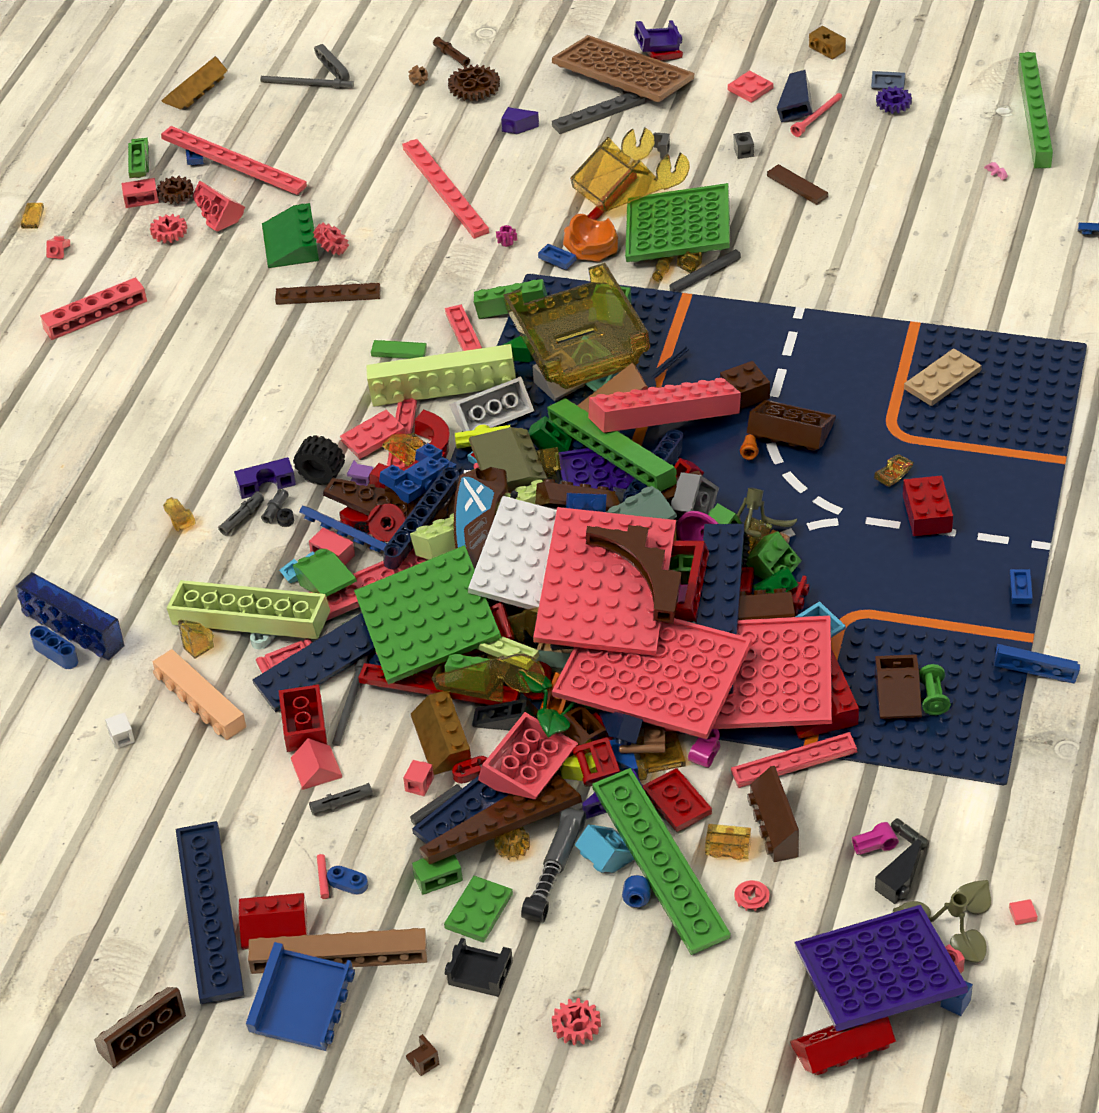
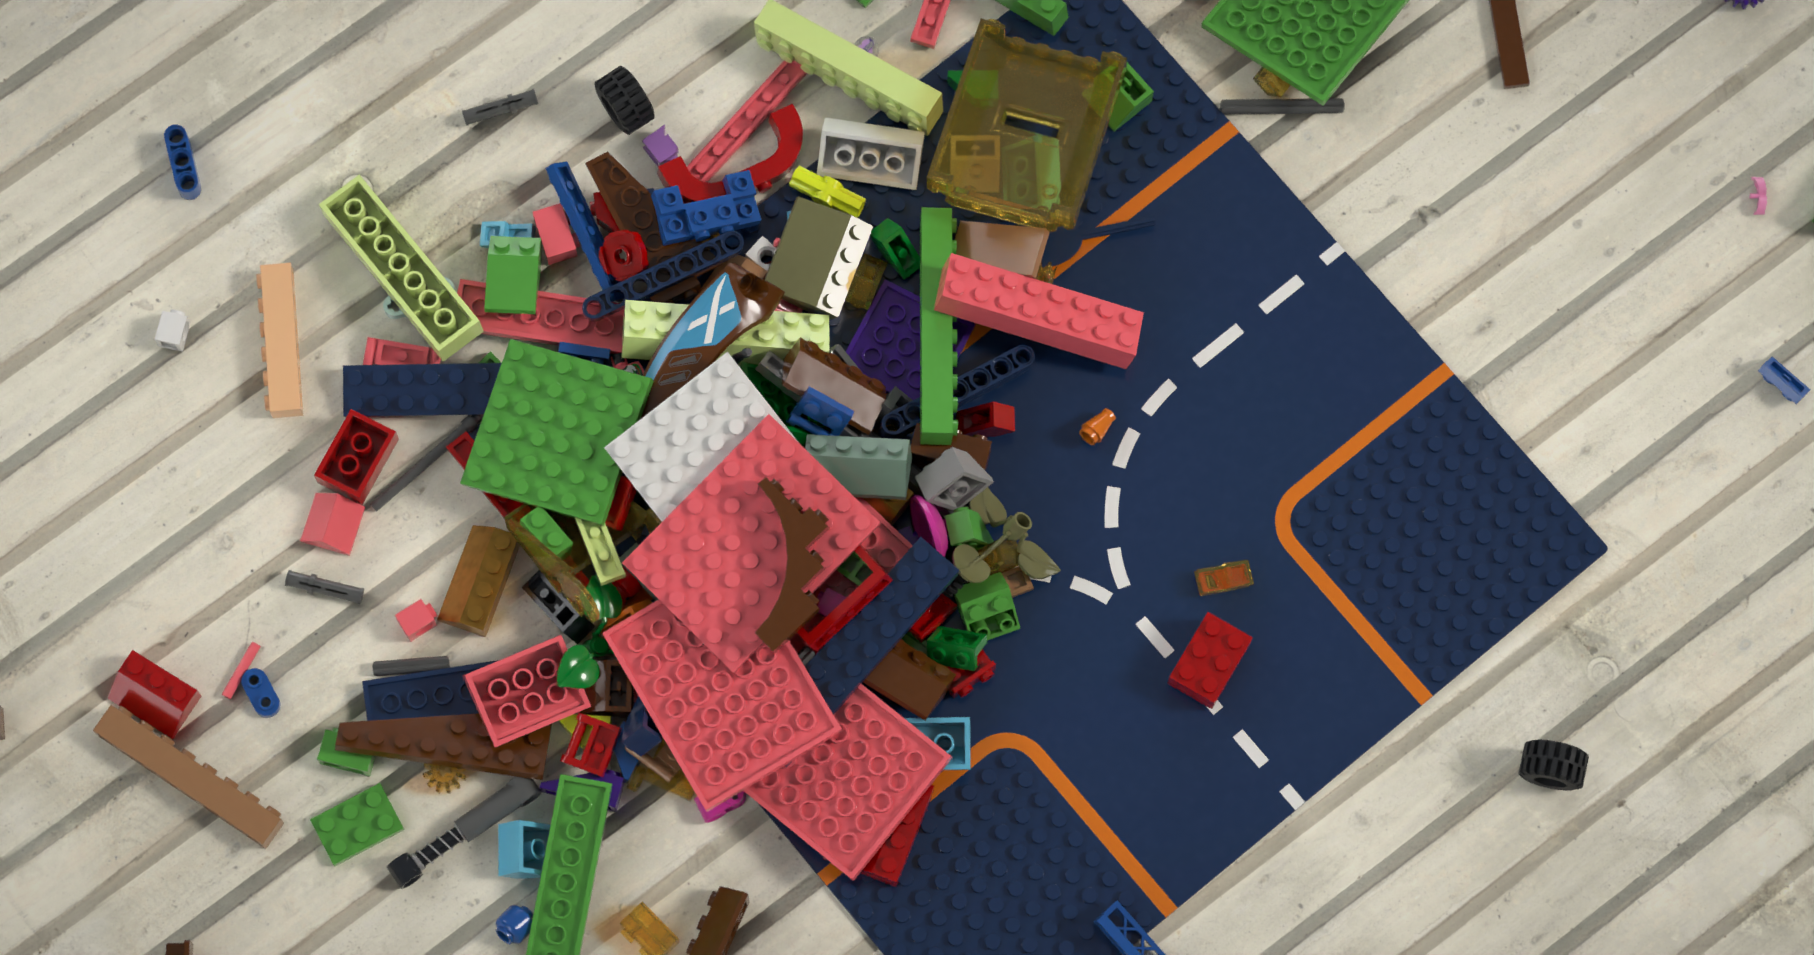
camera: 30 degrees right, 30 degrees up
(70, 616) = (218, 136): clear blue brick -> none
(180, 517) = (433, 66): clear yellow piece -> none
(195, 637) = (328, 261): clear yellow slope -> none
(209, 913) = (105, 632): dark blue plate -> none
(274, 506) = (541, 123): dark grey pin -> none
(278, 472) = (540, 64): dark purple arch -> none
(285, 522) = (537, 141): black bush -> none
(299, 998) = (111, 809): blue panel -> none
(372, 434) = (720, 92): coral plate -> none
(404, 446) = (733, 144): clear yellow slope -> none
(469, 768) = (476, 652): red beam -> none
(478, 968) = (303, 897): black panel -> none
(662, 268) = (1236, 65): clear yellow pin -> none
(677, 799) = (642, 841): red plate -> none
(749, 382) = (1166, 332): reddish brown brick -> none
(790, 424) = (1170, 426): reddish brown slope -> none
(796, 758) = (795, 882): coral tile -> none
(898, 686) = (965, 880): reddish brown slope -> none
(936, 702) = (999, 910): bright green hose -> none
(942, 377) = (1397, 481): tan plate -> none
(1021, 586) = (1211, 843): blue plate -> none

